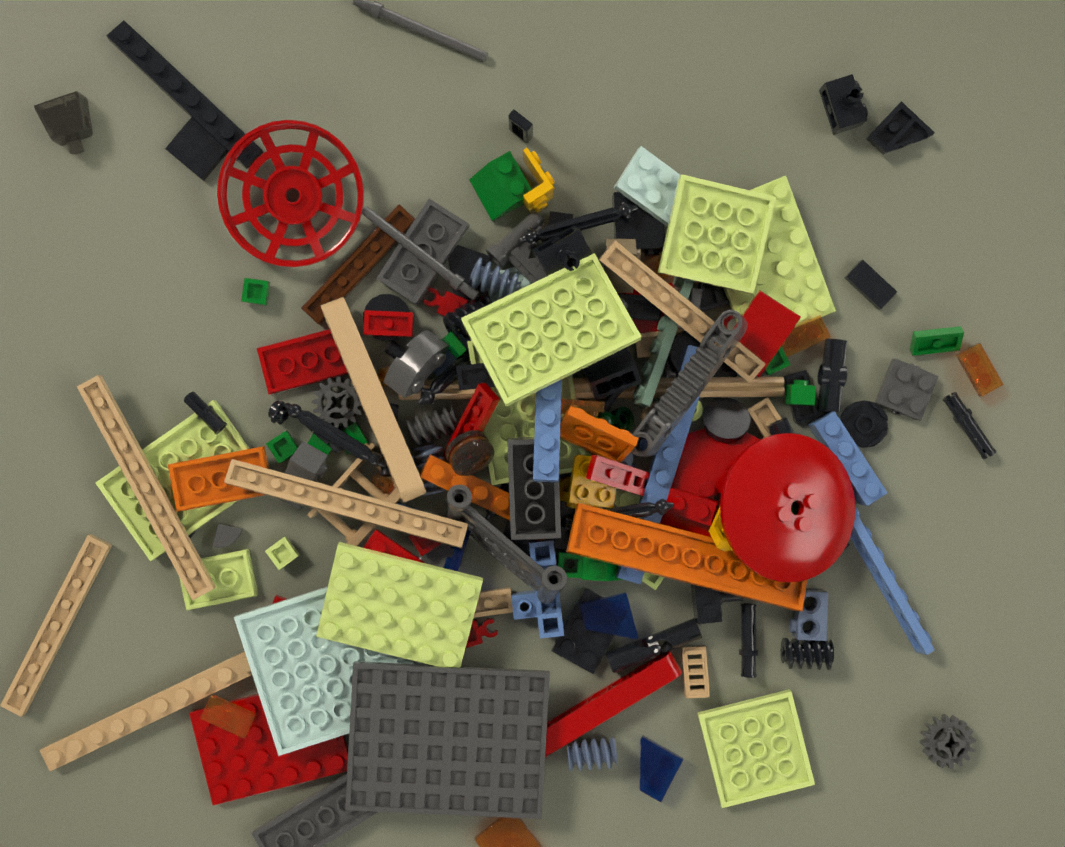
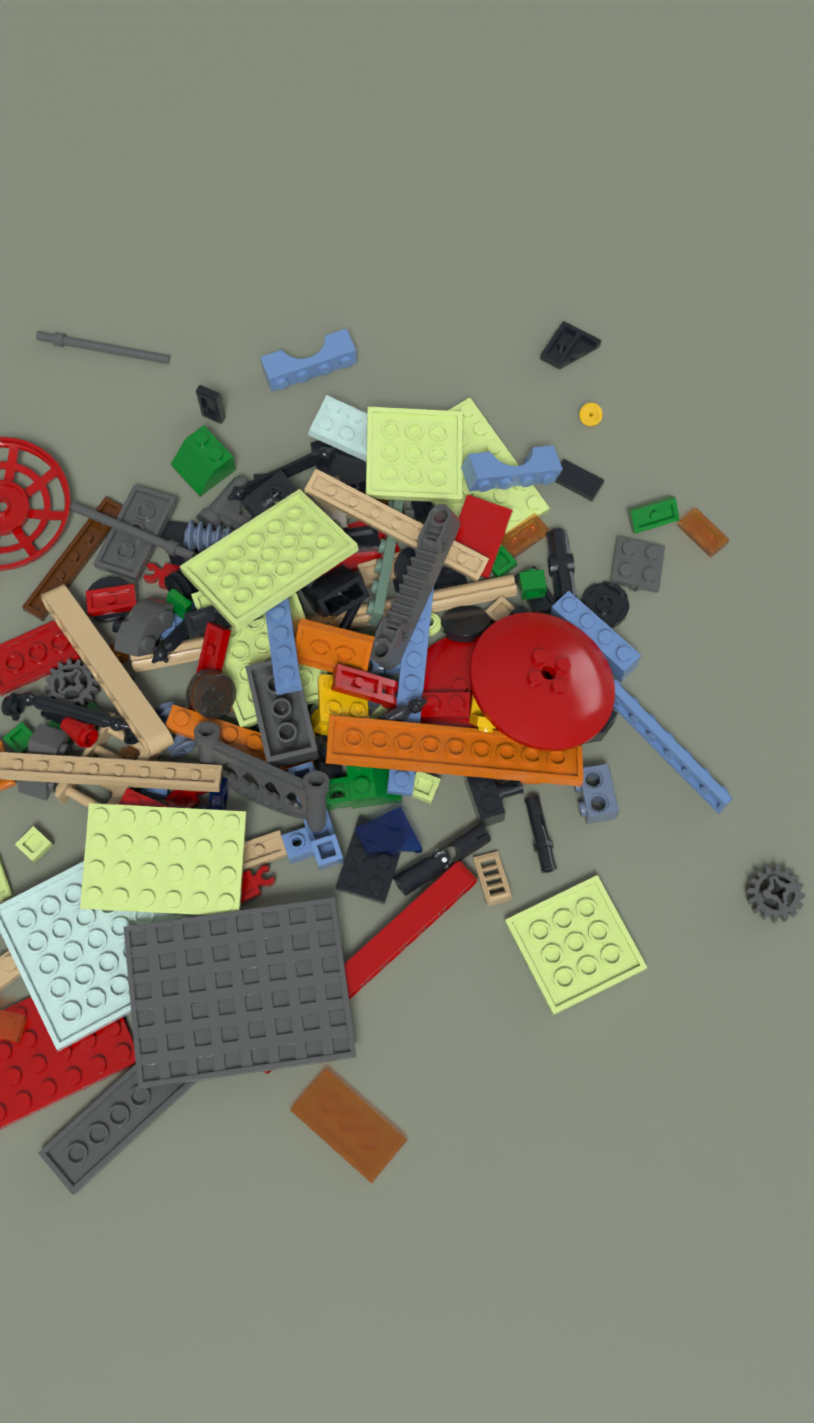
camera: 10 degrees left, 20 degrees down
(339, 461) = (80, 732): none -> red cone
(432, 426) = (169, 687): dark grey piece -> none
(538, 197) = (239, 456): yellow bracket -> none
(592, 754) = (400, 984): sand blue piece -> none
(600, 97) = (285, 370): none -> medium blue arch
(657, 768) = (474, 988): clear blue wing -> none
(785, 270) = (486, 472): none -> medium blue arch
(807, 652) = (604, 832): black piece -> none
(843, 104) = (511, 333): black brick -> none
(902, 215) = (591, 414): none -> yellow tile
(964, 418) = (708, 584): black pin -> none

